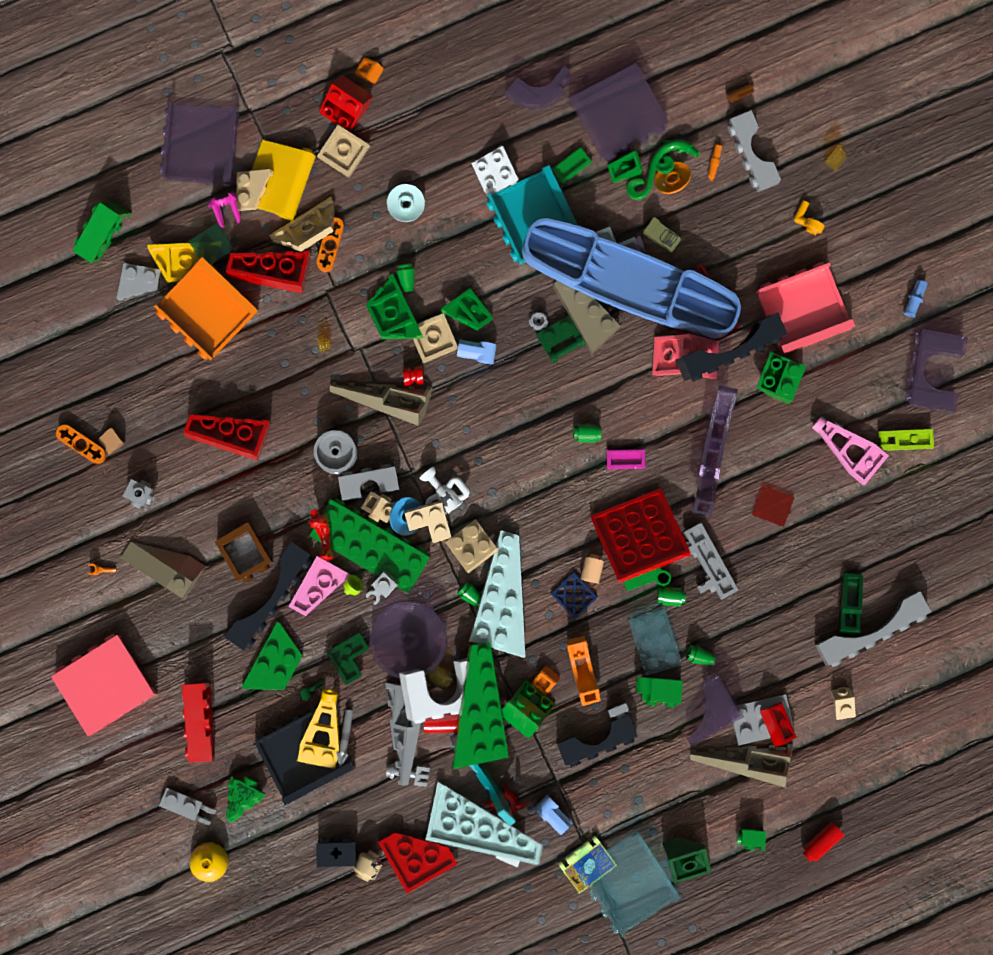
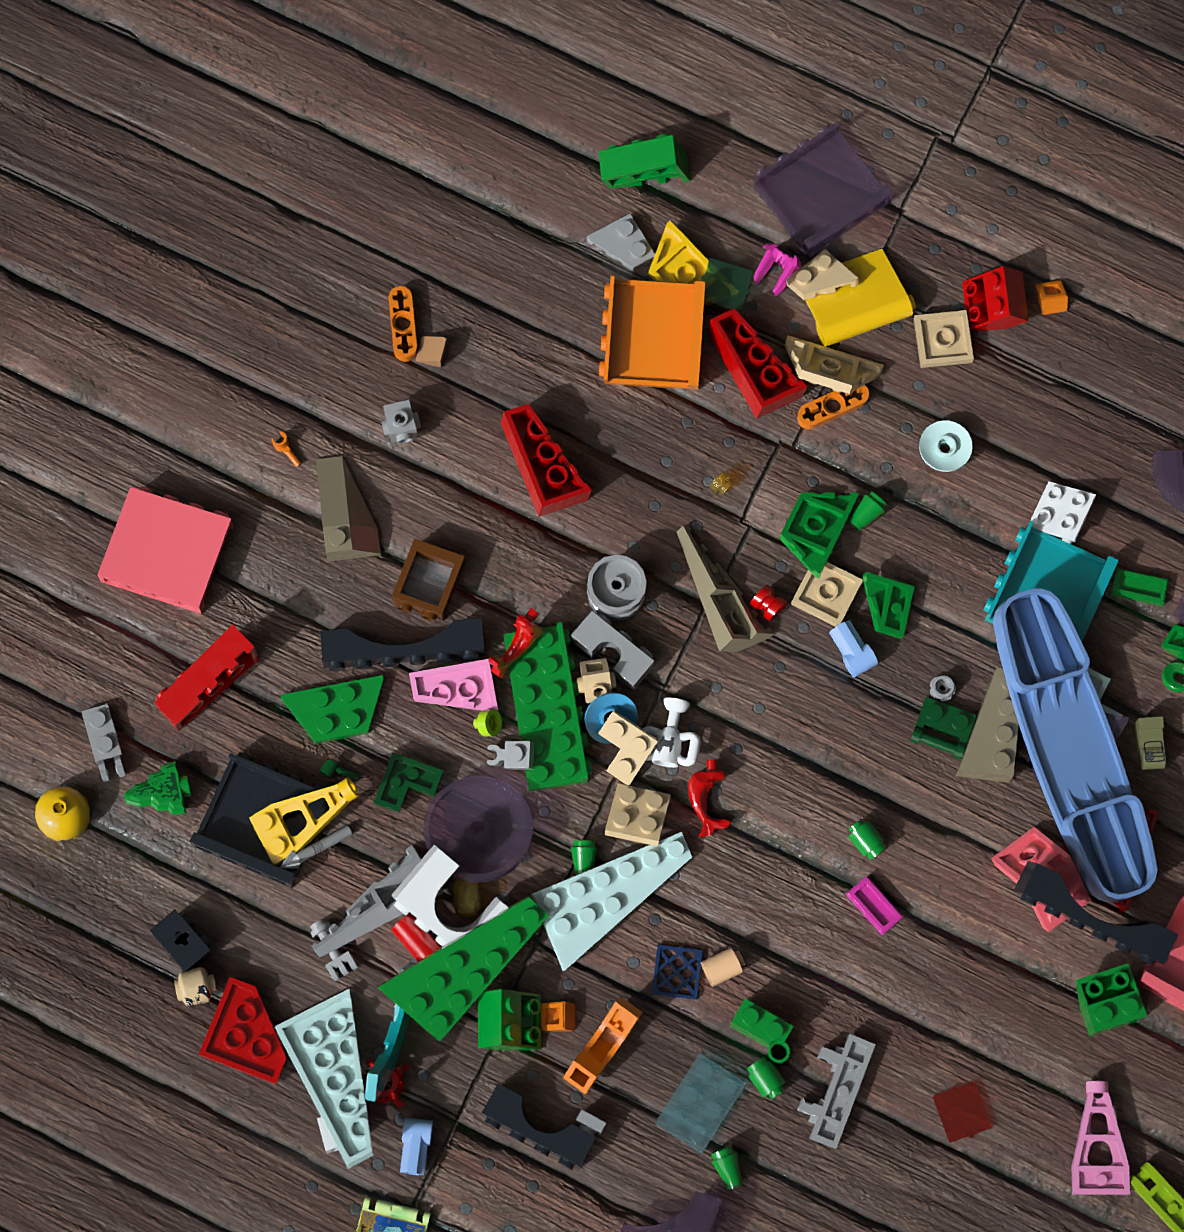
camera: 50 degrees right, 10 degrees down
(484, 500) = (697, 789): none -> red animal
(640, 535) = (803, 986): red plate -> none
(659, 690) = (650, 1151): green hinge -> none
(713, 449) = (967, 988): clear purple arch -> none

